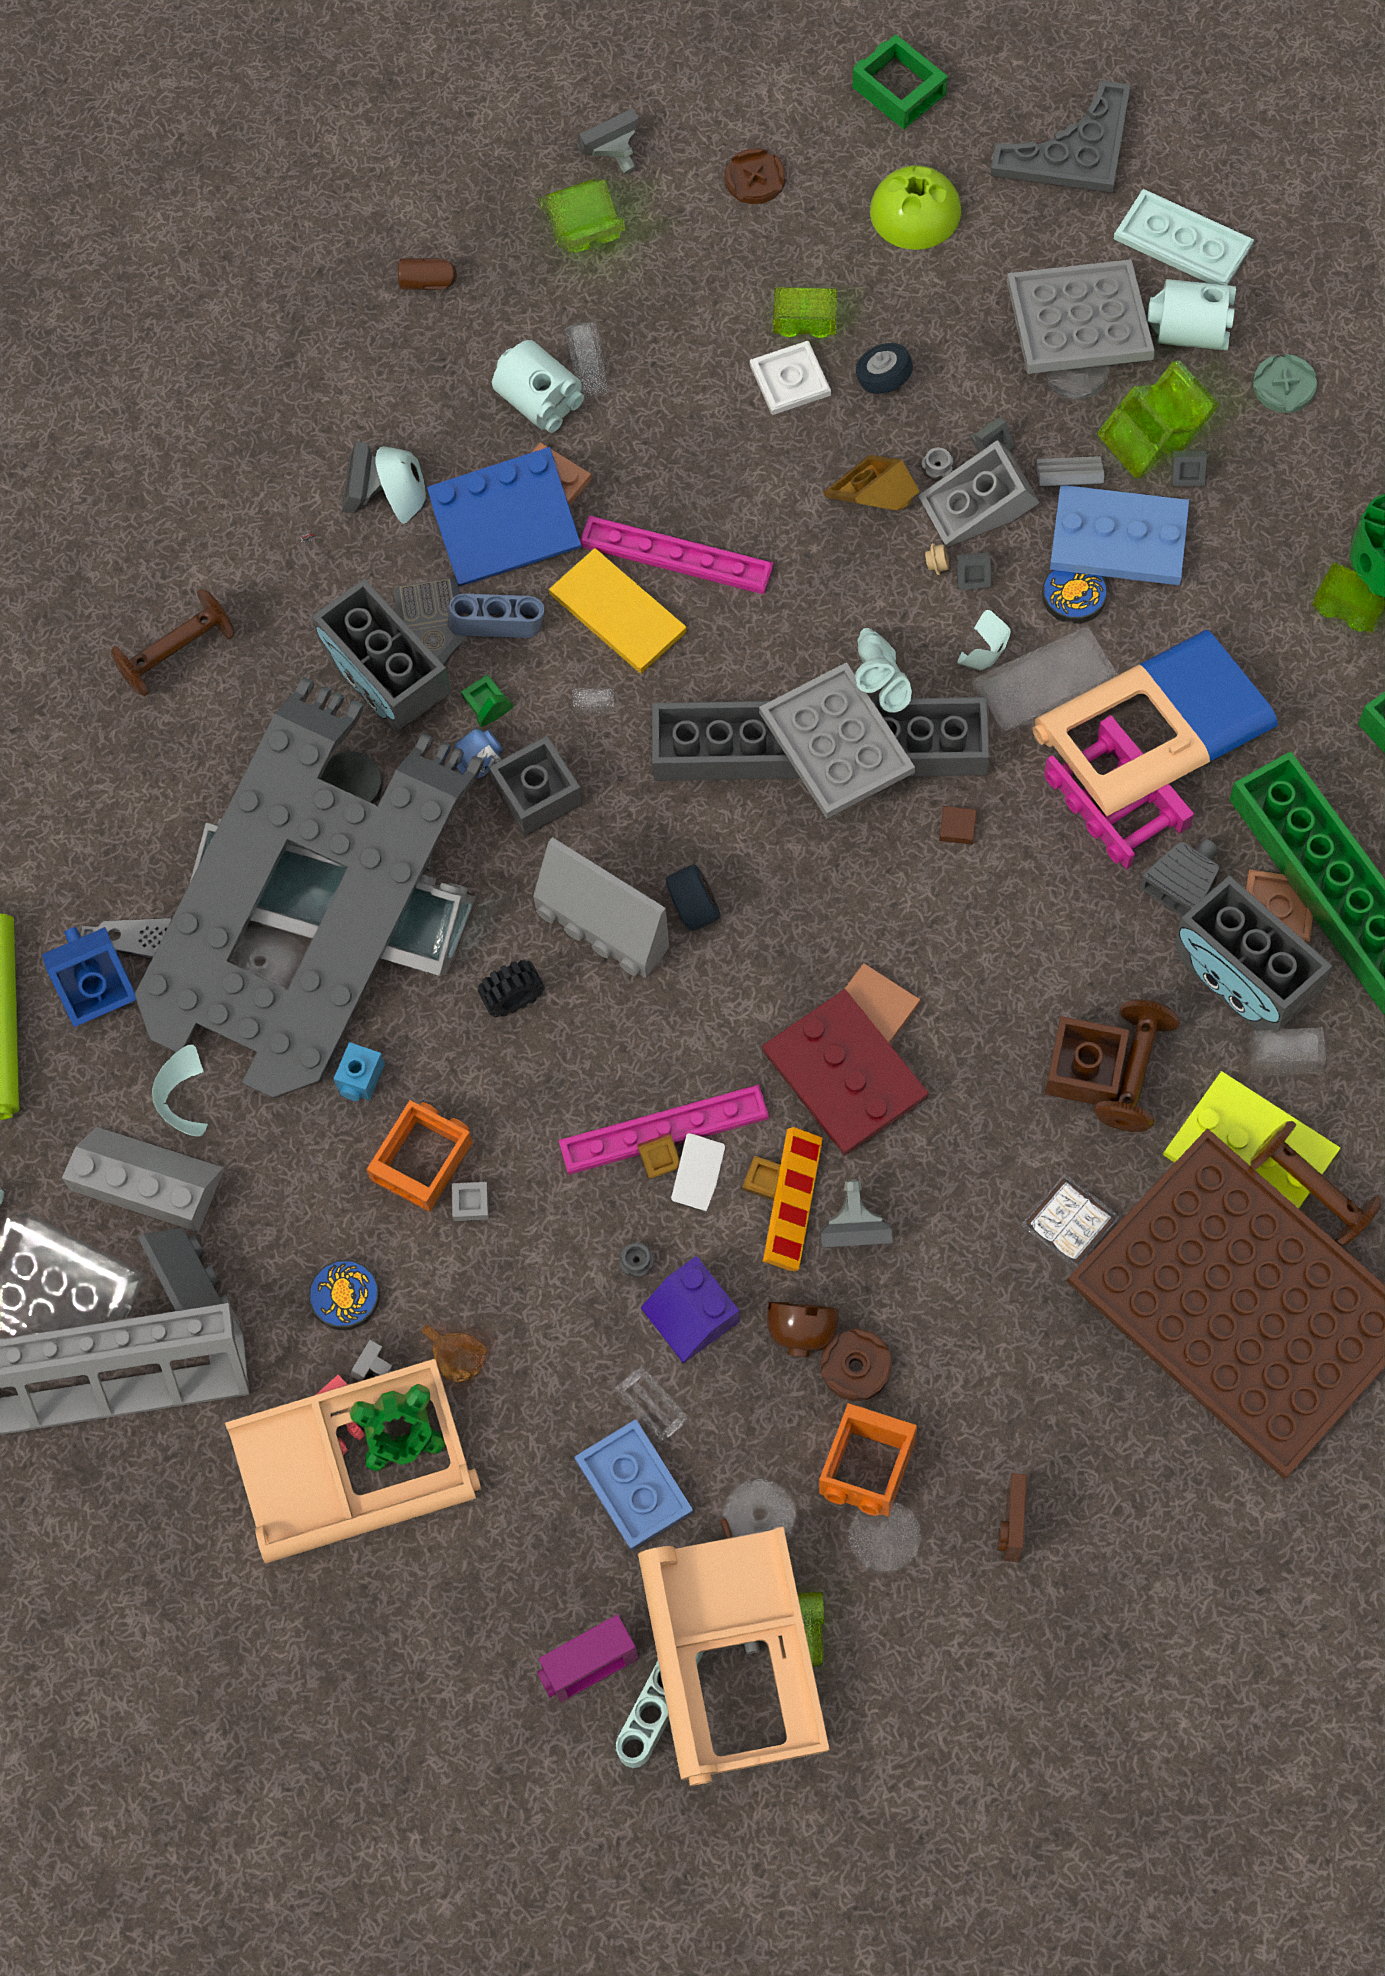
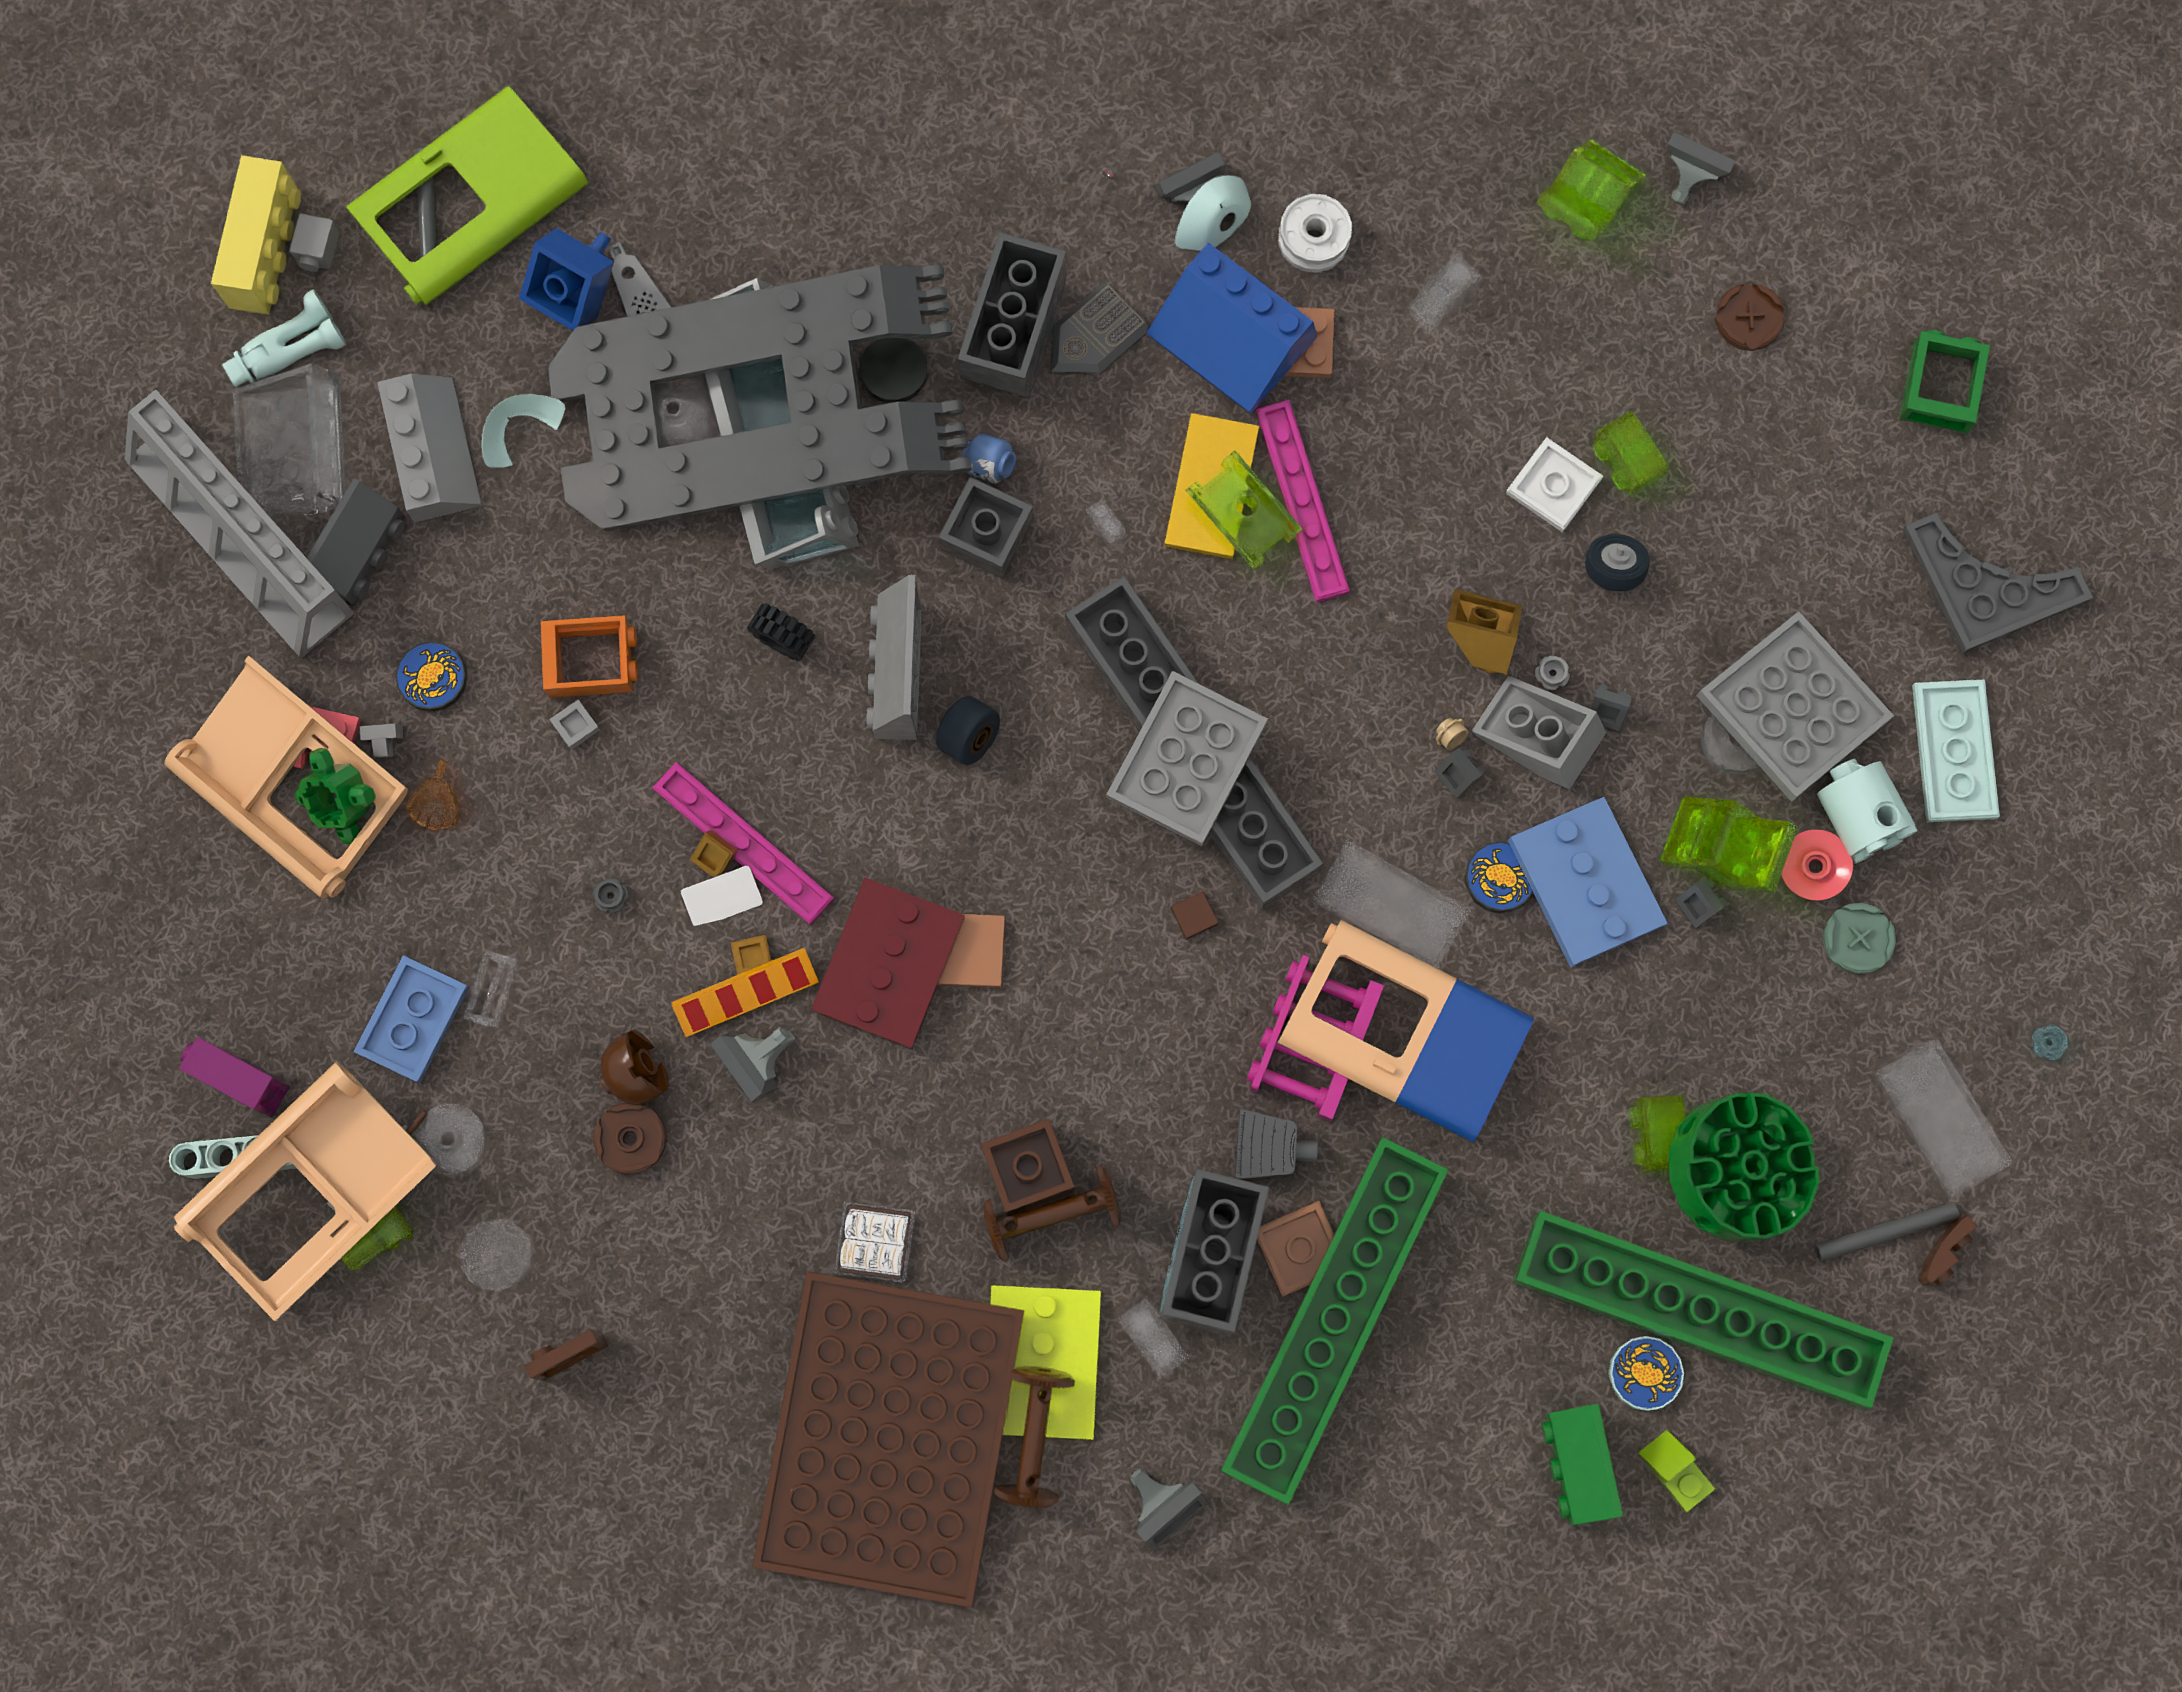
camera: 55 degrees right, 10 degrees up
(173, 642) = (920, 132): reddish brown hose -> none
(358, 1072) = (629, 557): dark azure brick -> none
(425, 273) = (1438, 95): reddish brown arm -> none
(466, 403) = (1319, 214): none -> white wheel
(481, 606) = (1129, 369): sand blue beam -> none
(486, 700) = (1048, 432): green tile -> none
(537, 385) = (1383, 268): light aqua cylinder -> none
(640, 603) = (1247, 534): none -> clear neon green piece
(690, 1309) = (592, 970): dark purple slope -> none
(877, 1428) = (541, 1169): orange window -> none
(881, 671) = (1286, 755): light aqua piece -> none
(915, 208) = (1807, 497): lime piece -> none
(995, 634) = (1409, 832): light aqua piece -> none
(1070, 471) = (1627, 794): light grey tile -> none
(1221, 365) = (1835, 862): none -> coral dish

